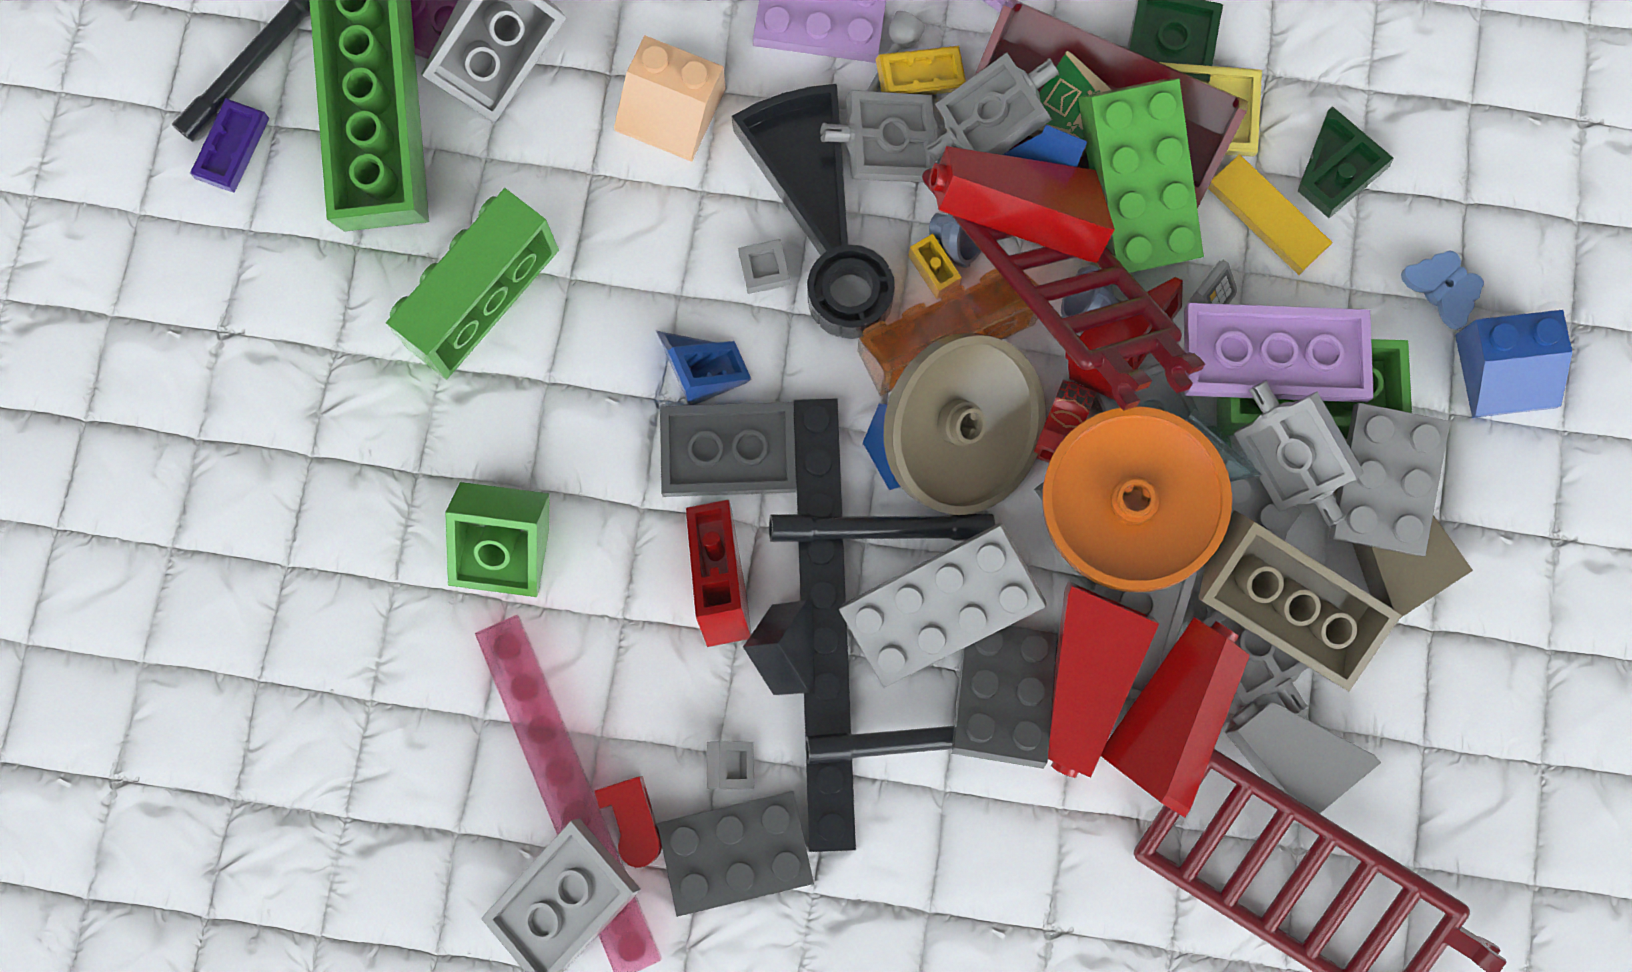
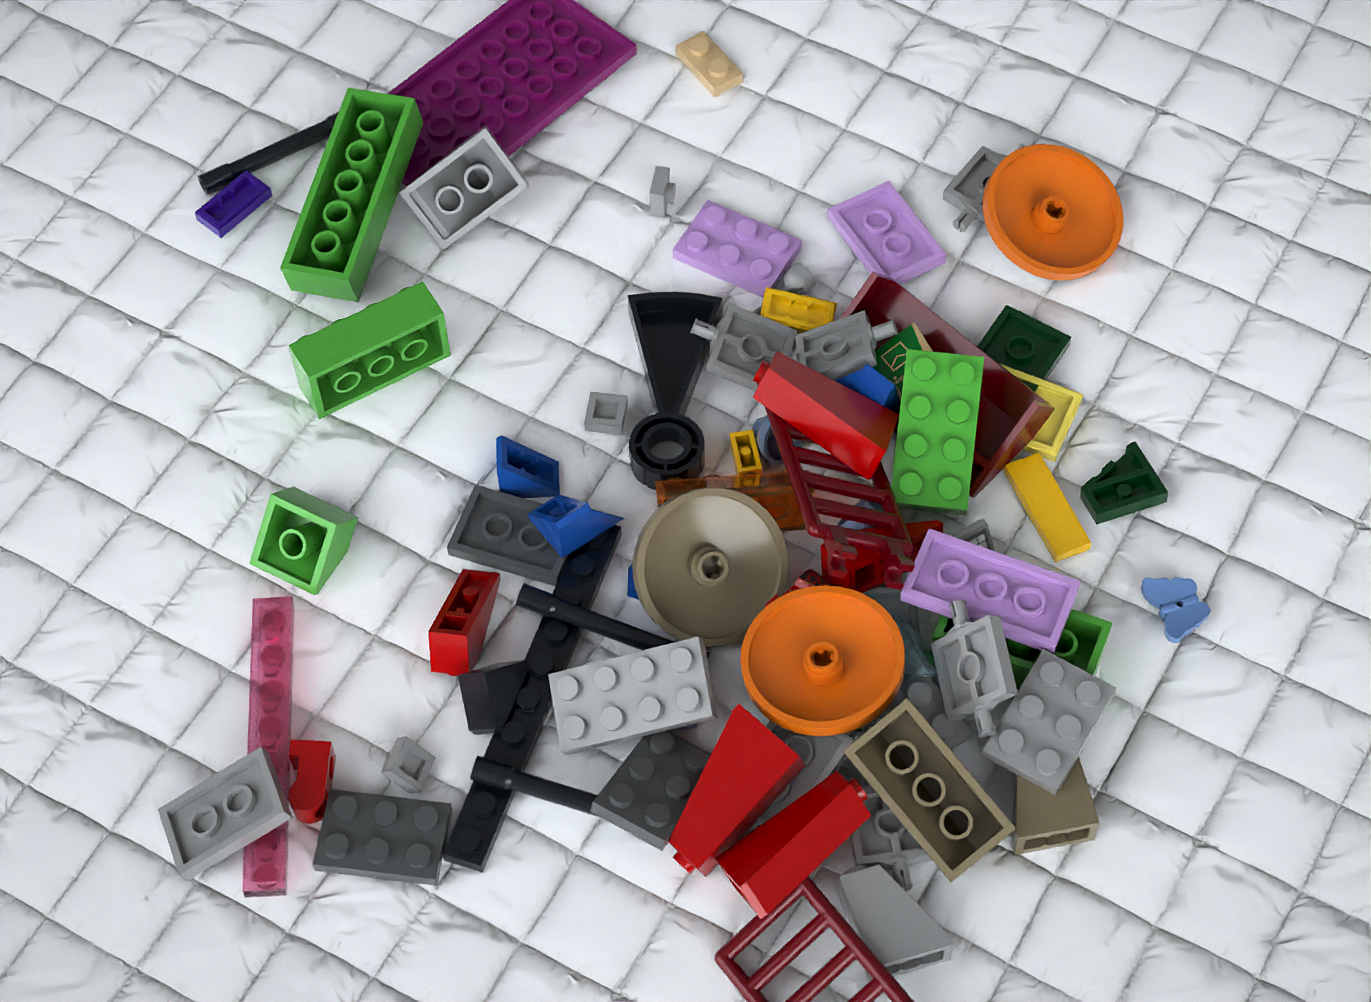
camera: 25 degrees right, 20 degrees down
(669, 98) = (586, 270): light nougat slope -> none
(784, 418) = (570, 523): none -> blue slope
(1515, 362) = (1212, 683): blue slope -> none

